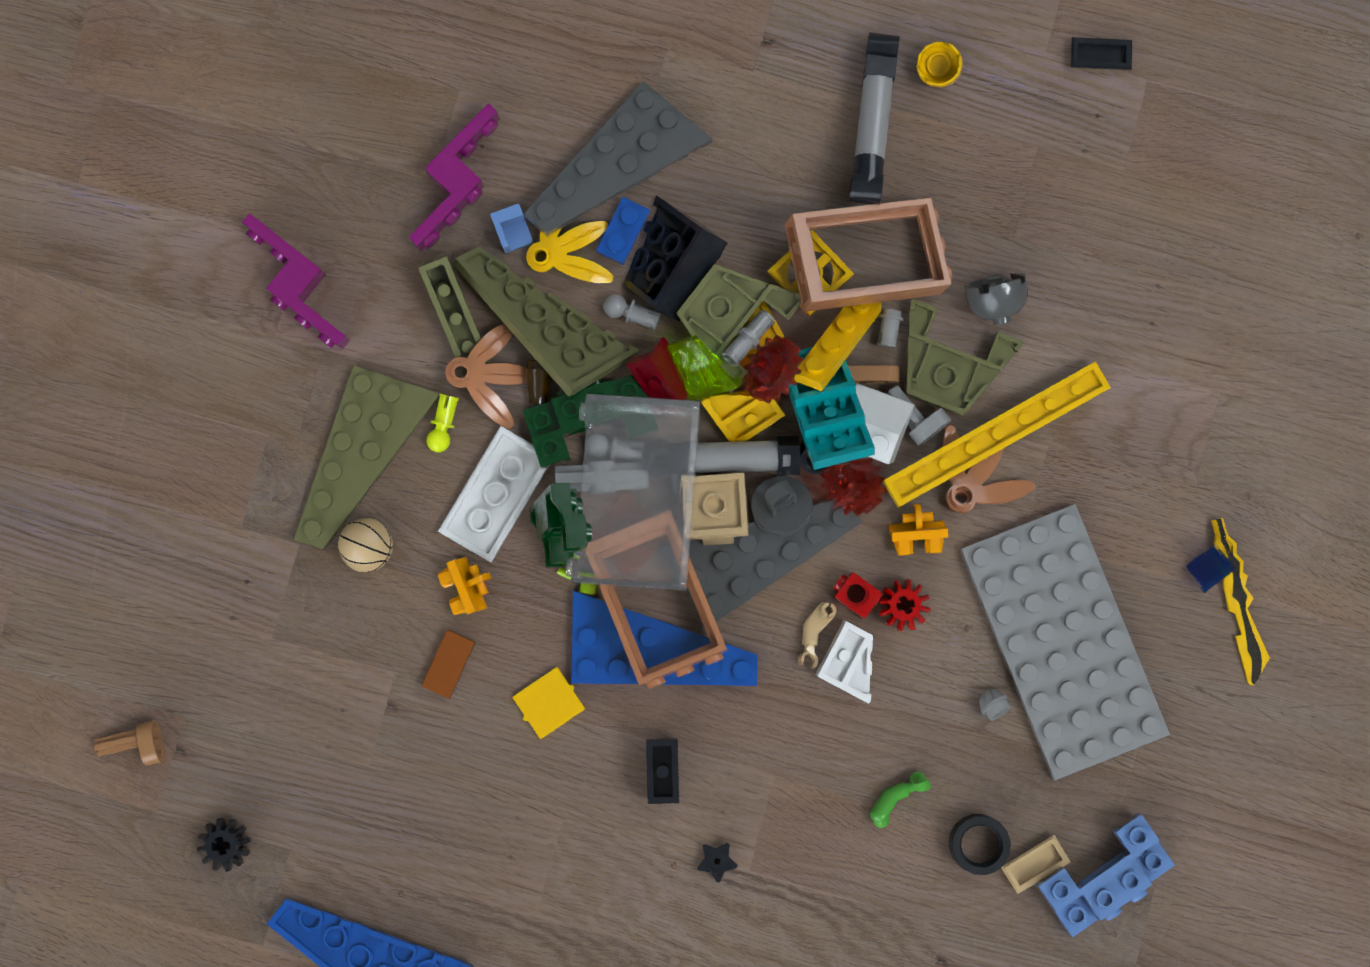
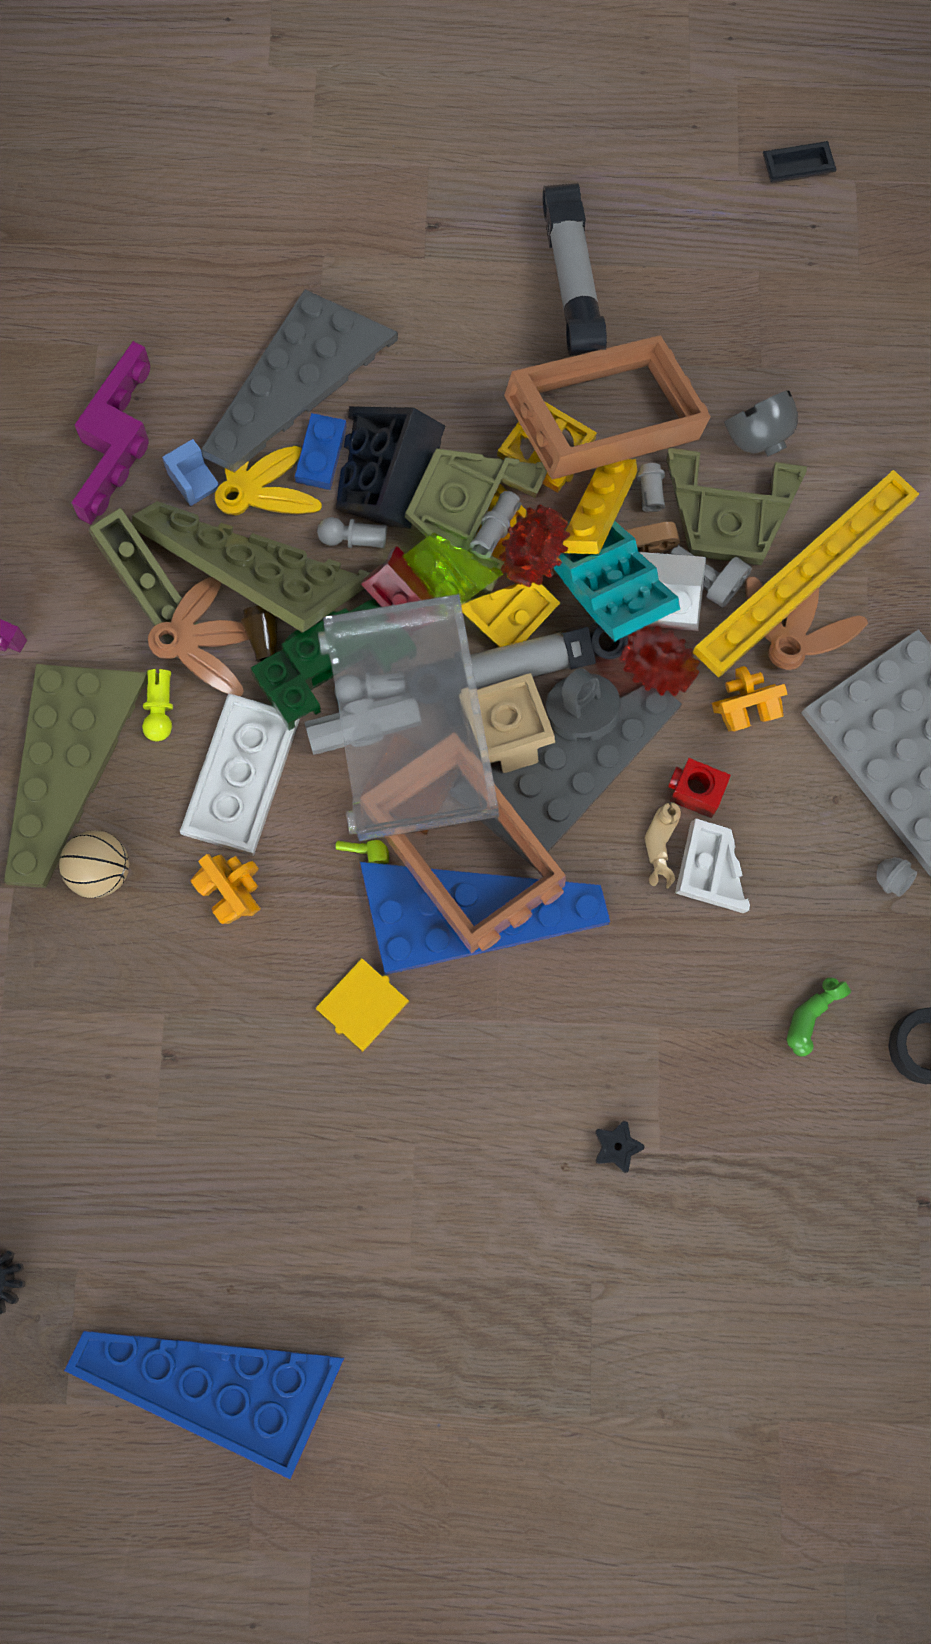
camera: 20 degrees left, 10 degrees down
(448, 664) = (228, 986): dark orange tile -> none
(560, 523) = (323, 769): dark green bracket -> none
(662, 770) = (523, 1047): black brick -> none
(907, 595) = (758, 799): red gear -> none
(939, 64) = (629, 204): yellow hair -> none

